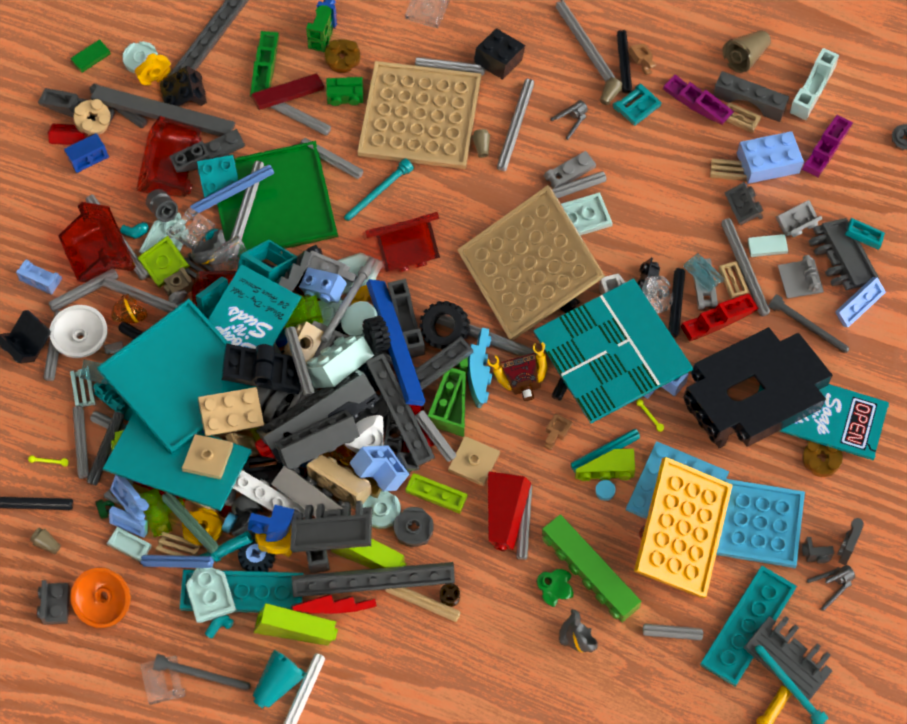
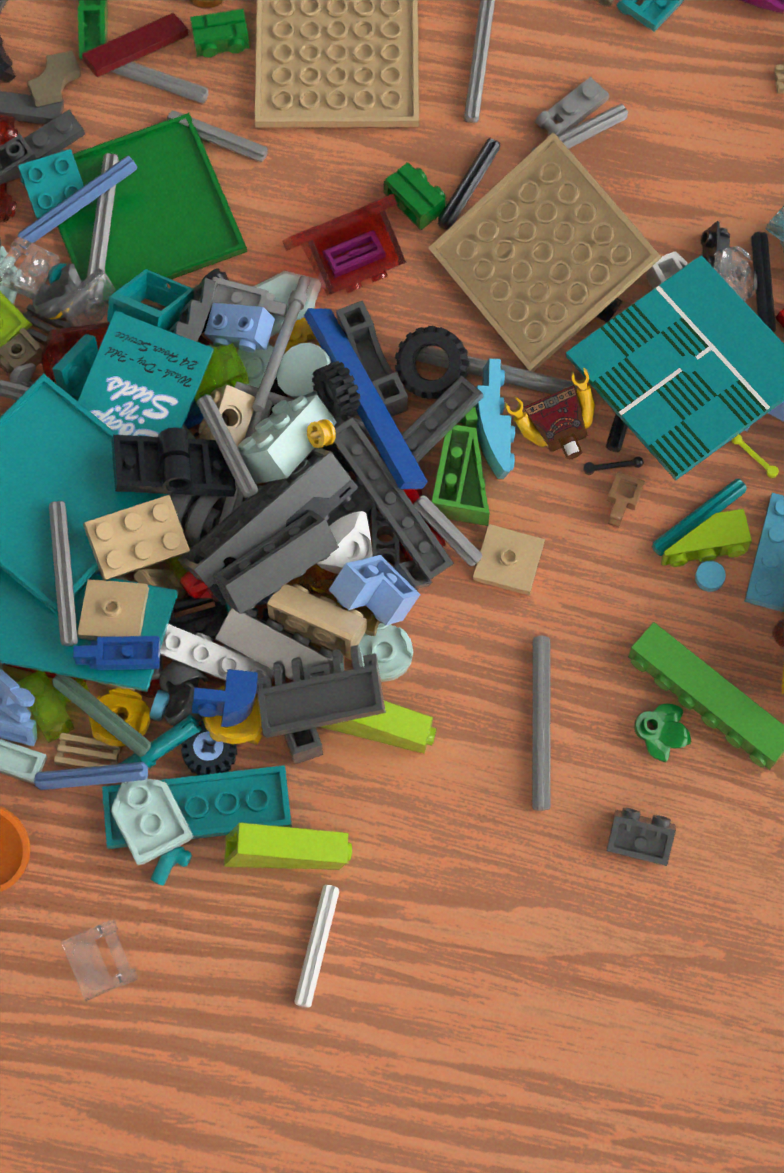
camera: 10 degrees left, 5 degrees up
(162, 663) = (96, 936): dark grey piece -> none
(179, 428) = (63, 573): none -> light grey axle
(207, 483) = (120, 653): none -> blue hinge
(235, 102) = (59, 71): none -> dark tan tile
(277, 679) = (274, 934): teal cone -> none
(326, 605) = (330, 810): red slope -> none
(361, 361) = (321, 433): none -> yellow bush
(373, 579) = (392, 760): dark grey tile -> none
(404, 167) = (328, 135): teal piece -> none
(408, 250) = (355, 258): none -> magenta tile
(422, 520) = (448, 659): dark grey plate -> none
(426, 603) = (470, 781): tan axle -> none
(436, 493) = (462, 616): lime plate -> none
(450, 590) = (513, 761): dark brown wheel -> none
(454, 214) = (415, 195): none -> green brick
(475, 572) = (541, 725): none -> light grey axle
(481, 140) = (435, 82): dark tan cone -> none
(492, 210) = (468, 183): none -> black axle
(505, 508) = (570, 622): red slope -> none
(523, 533) = (599, 640): light grey axle -> none
(528, 652) = (641, 836): none -> dark grey bracket
(538, 409) = (590, 468): none -> black hinge
(576, 110) = (565, 20): dark grey plant -> none
(576, 634) = (709, 799): dark grey hair -> none
(588, 213) = (614, 167): light aqua tile -> none

